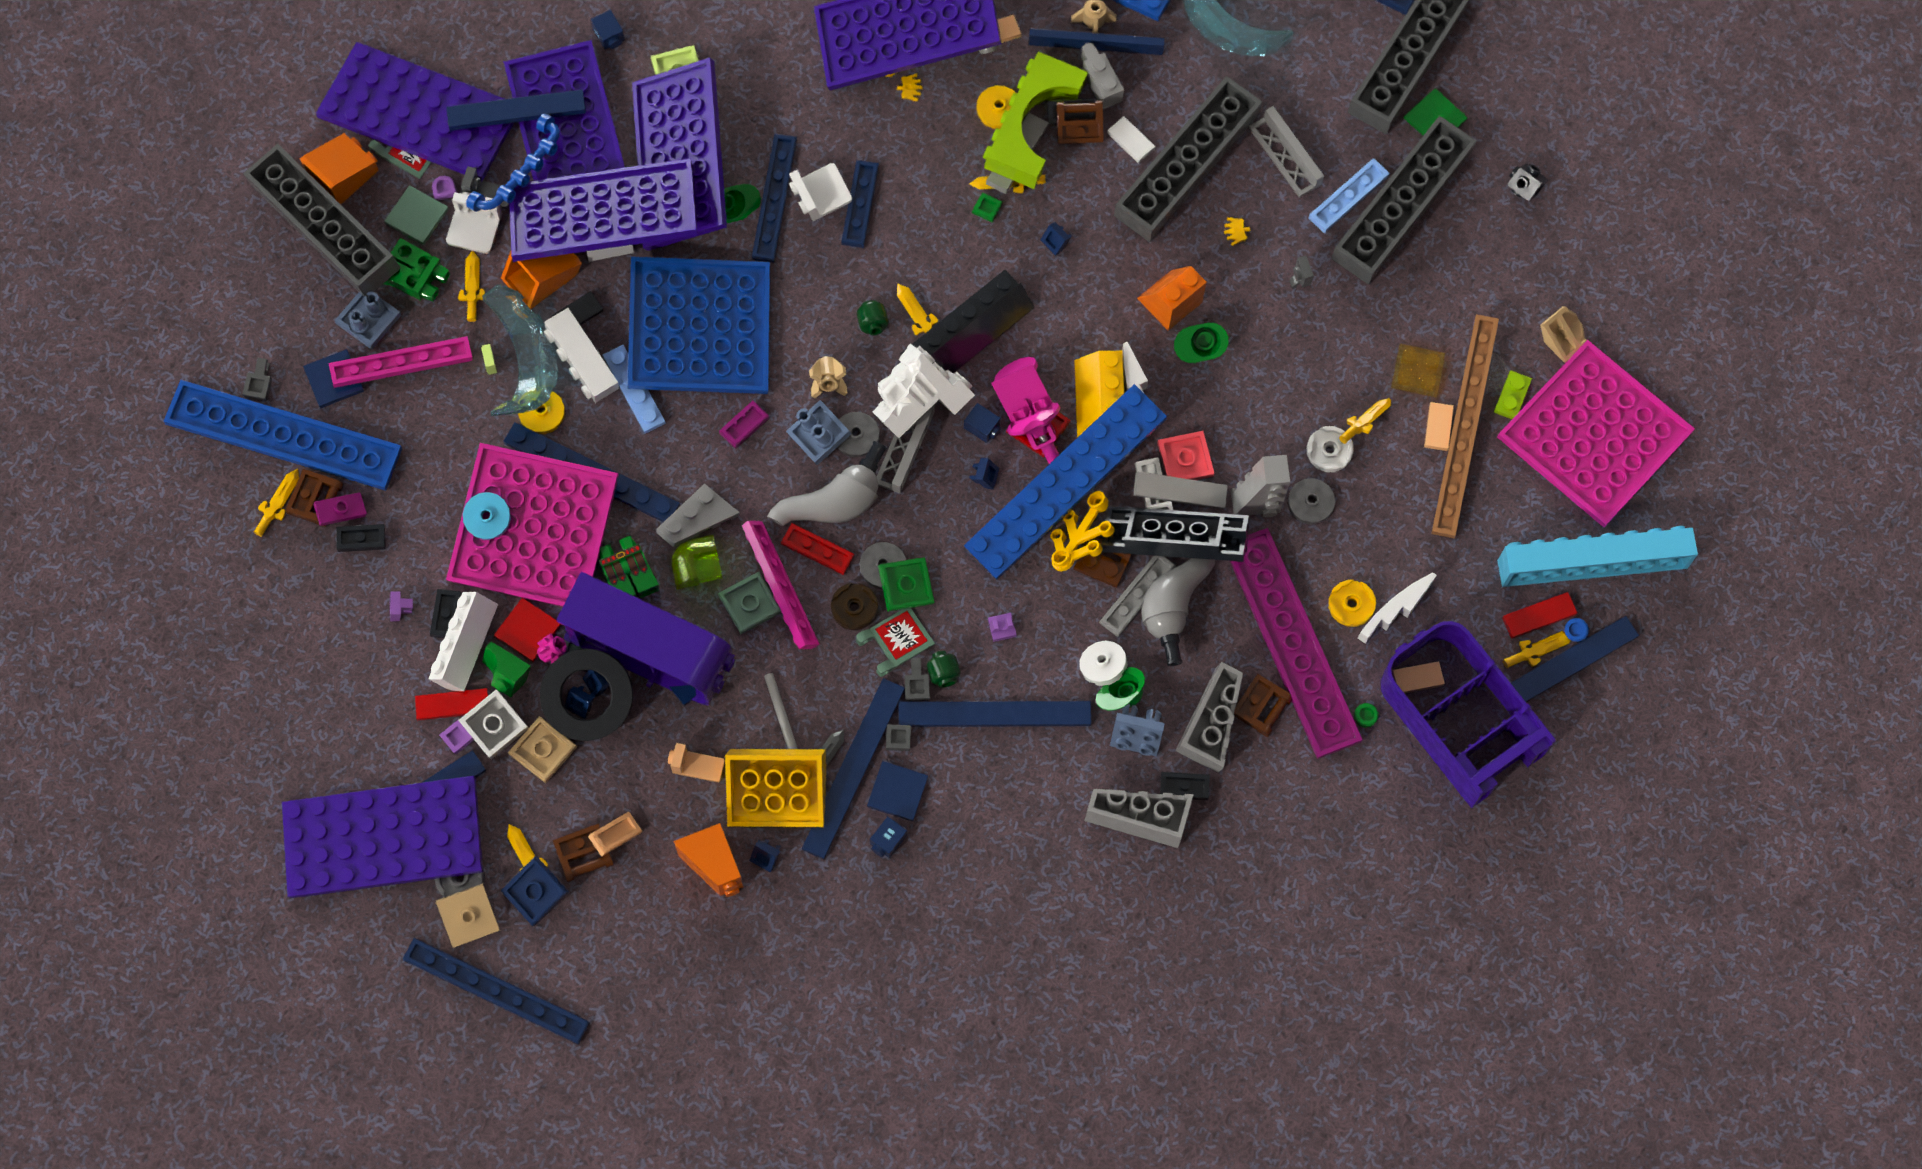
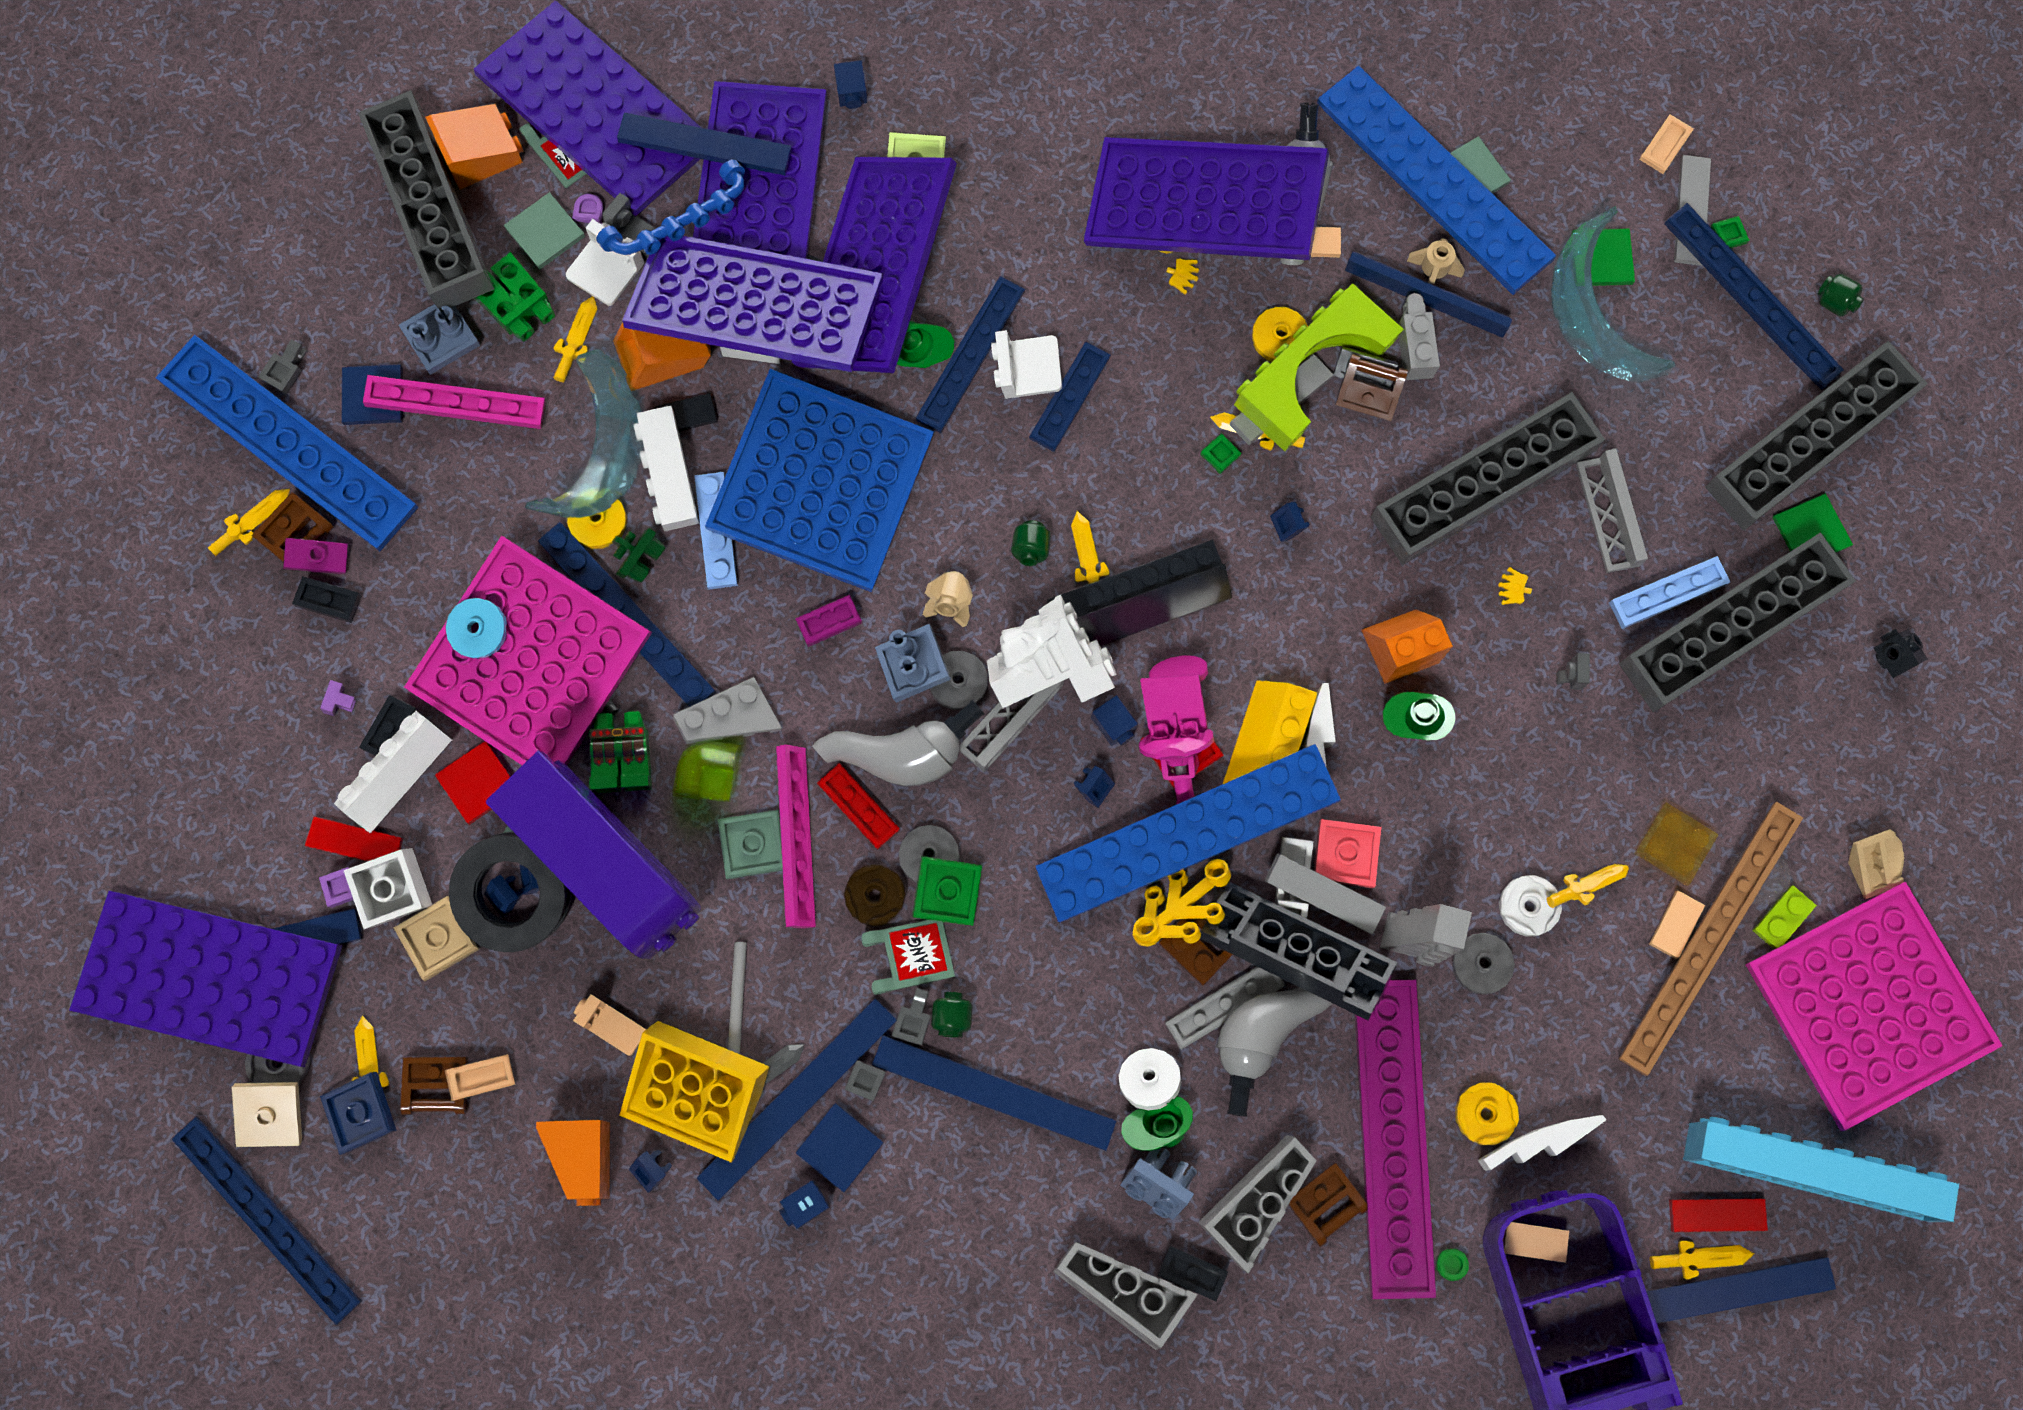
camera: 20 degrees right, 5 degrees up
(489, 359) = (558, 434): yellowish green tile -> none
(507, 670) = (432, 825): green arch -> none
(551, 648) = (488, 821): dark pink gear -> none
(586, 416) = (631, 566): none -> dark green hips
(1002, 627) = (1043, 986): medium lavender tile -> none
(1131, 139) = (1426, 429): white tile -> none
(1576, 630) = (1759, 1254): blue tile -> none

